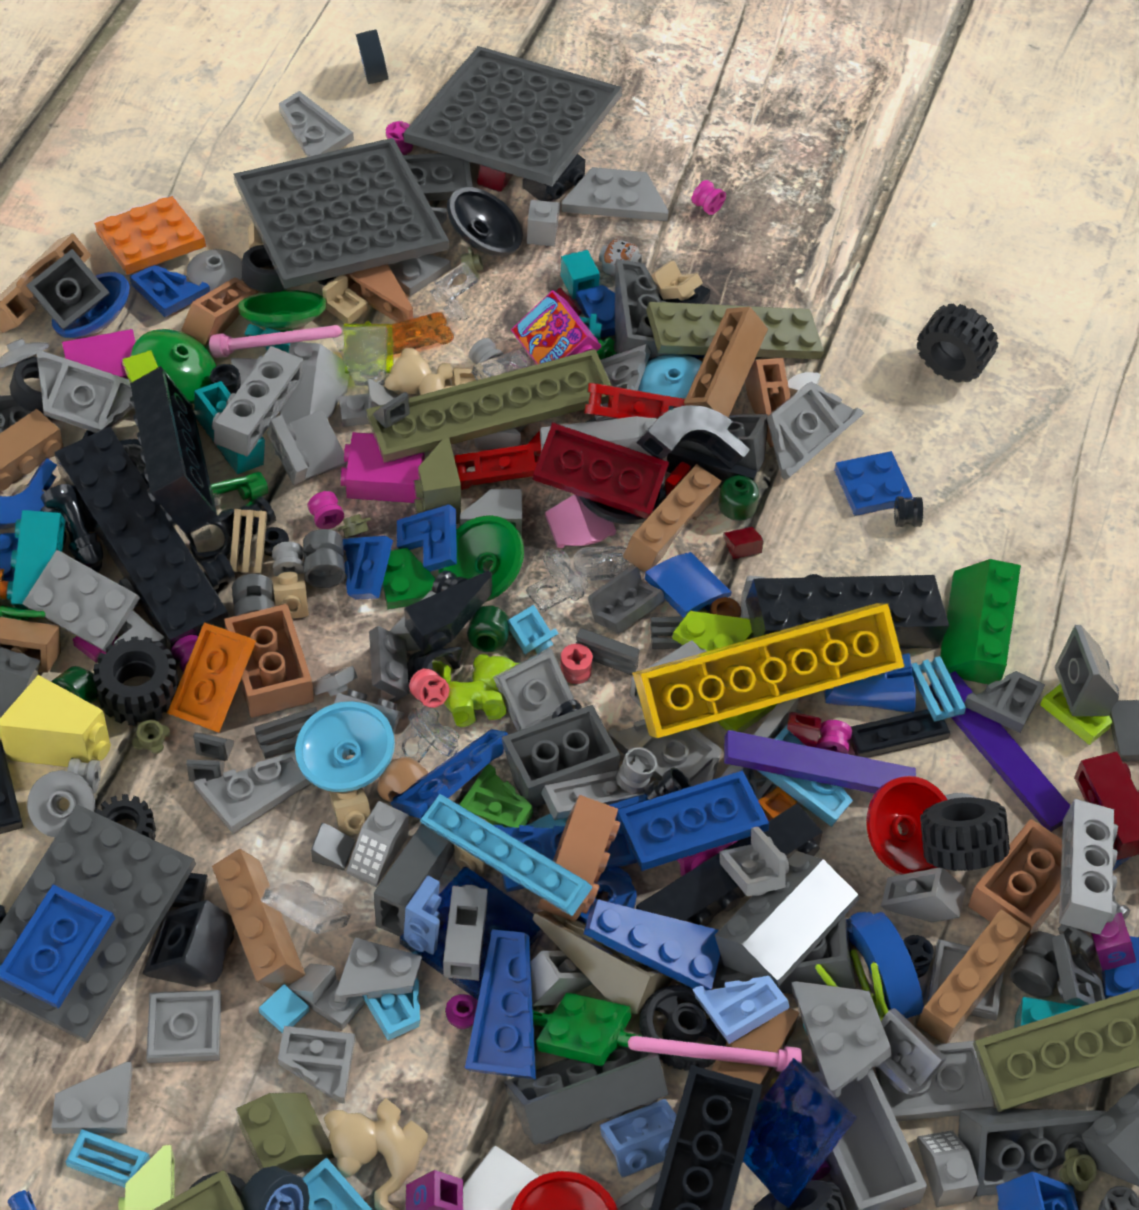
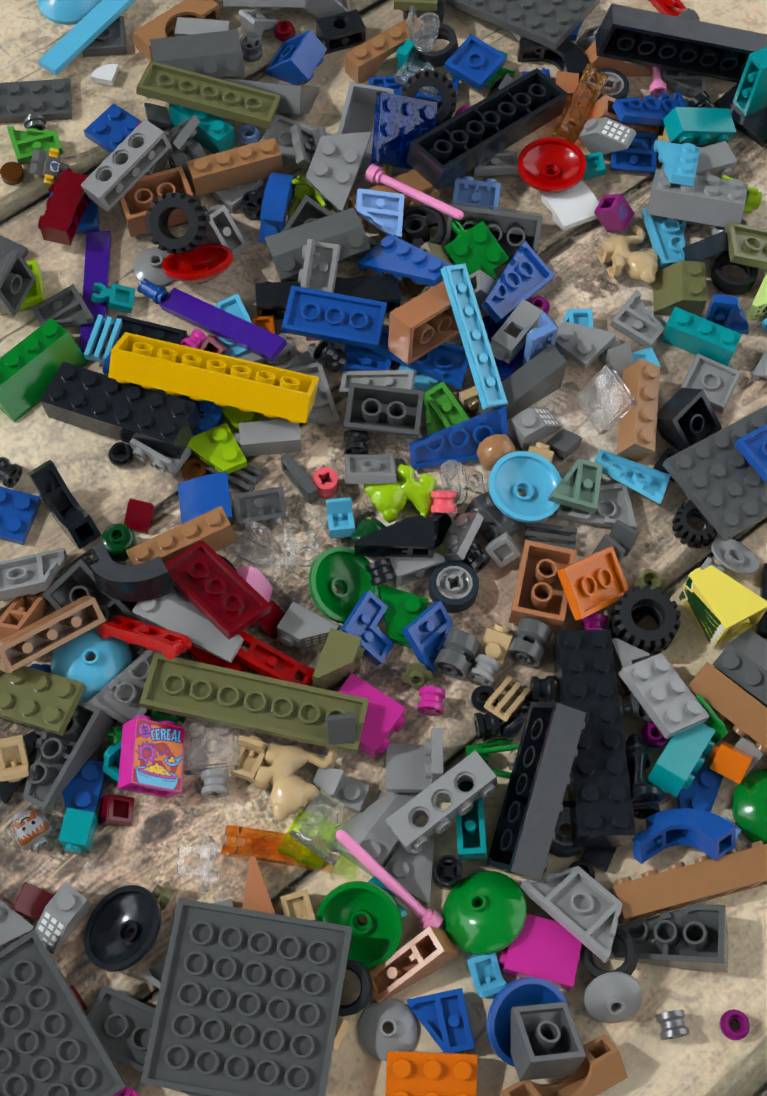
camera: 150 degrees left, 10 degrees up
(78, 682) = (692, 641): dark green head -> none
(139, 365) = (523, 894): lime tile -> none
(142, 322) = (485, 975): none -> medium azure bracket
(200, 1112) = (728, 313): none -> blue wing
(214, 835) = (634, 475): none -> medium azure wing
(222, 1071) = (700, 336): none -> teal brick
(283, 777) = (579, 486): none -> sand green wing
(357, 614) = (459, 597): none -> wheel
(360, 660) = (476, 558): none -> black wheel
(534, 509) = (269, 623): none -> dark red slope
(577, 219) = (32, 901): none -> dark red slope
(636, 770) = (342, 374): light grey wheel -> none
(813, 505) = (63, 506): none -> black arch
(941, 779) = (152, 291): none -> blue pin
(948, 1168) = (324, 102): light grey slope -> none
(966, 747) = (118, 296): none -> teal plate
(1085, 1172) = (256, 71): olive plate -> none

